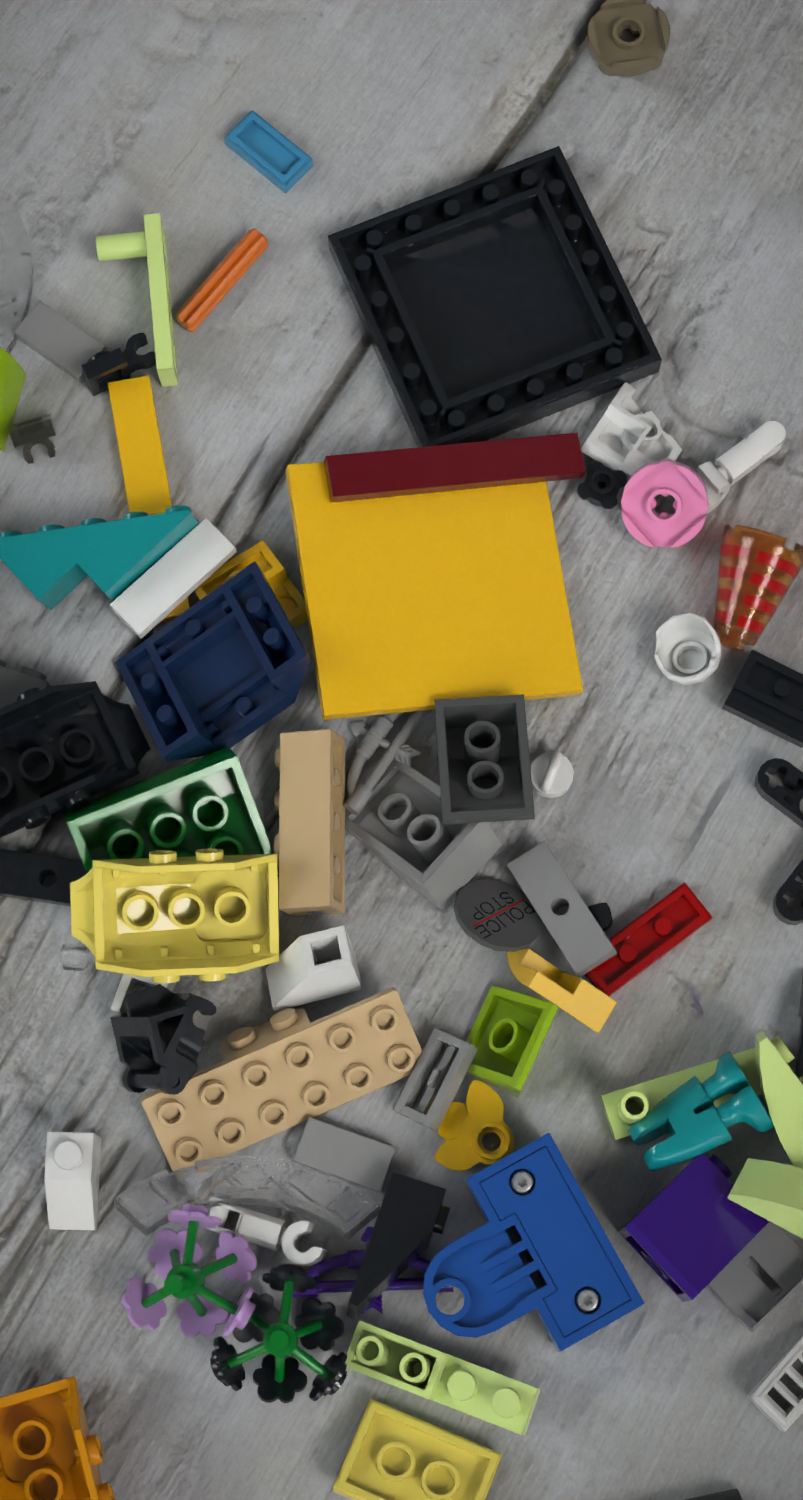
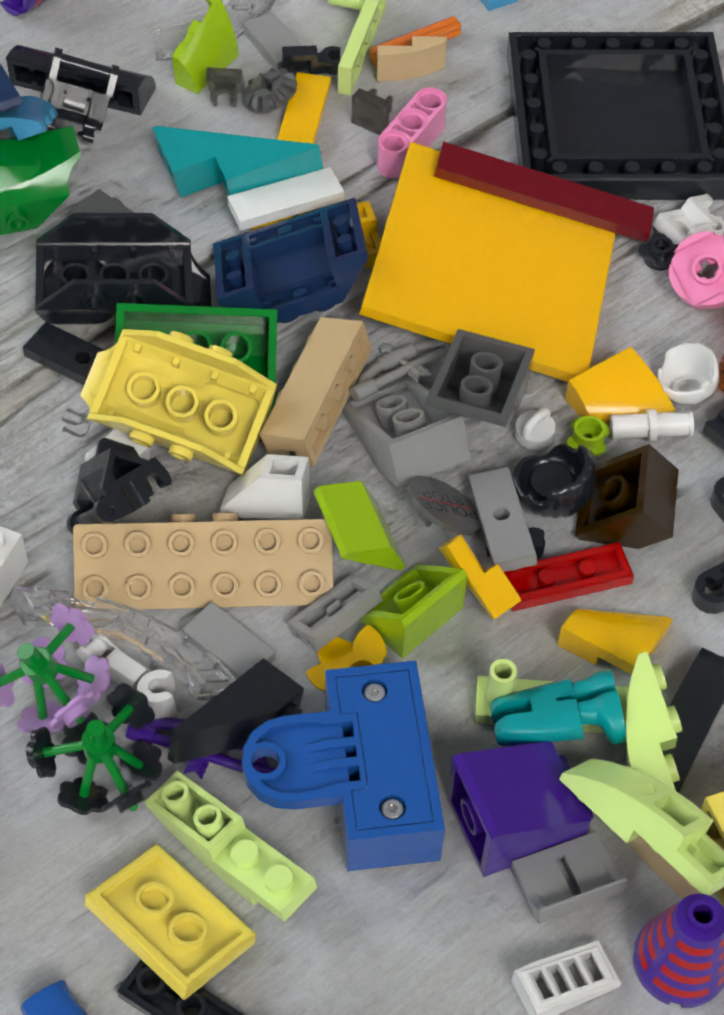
camera: 15 degrees right, 20 degrees down
(104, 417) = (260, 99): none -> dark grey gear
(215, 411) = (371, 110): none -> clear smoke tile
(243, 304) = (407, 62): none -> tan slope
(273, 406) = (417, 122): none -> bright pink beam
(423, 978) = (358, 525): none -> lime slope
(598, 843) = (556, 481): none -> black piece
(615, 751) = (590, 427): none -> lime plate
(621, 694) = (617, 387): none -> yellow slope
(669, 724) = (652, 425): none -> white pin
(677, 831) = (631, 500): none -> dark brown slope
(719, 994) = (612, 636): none -> yellow slope

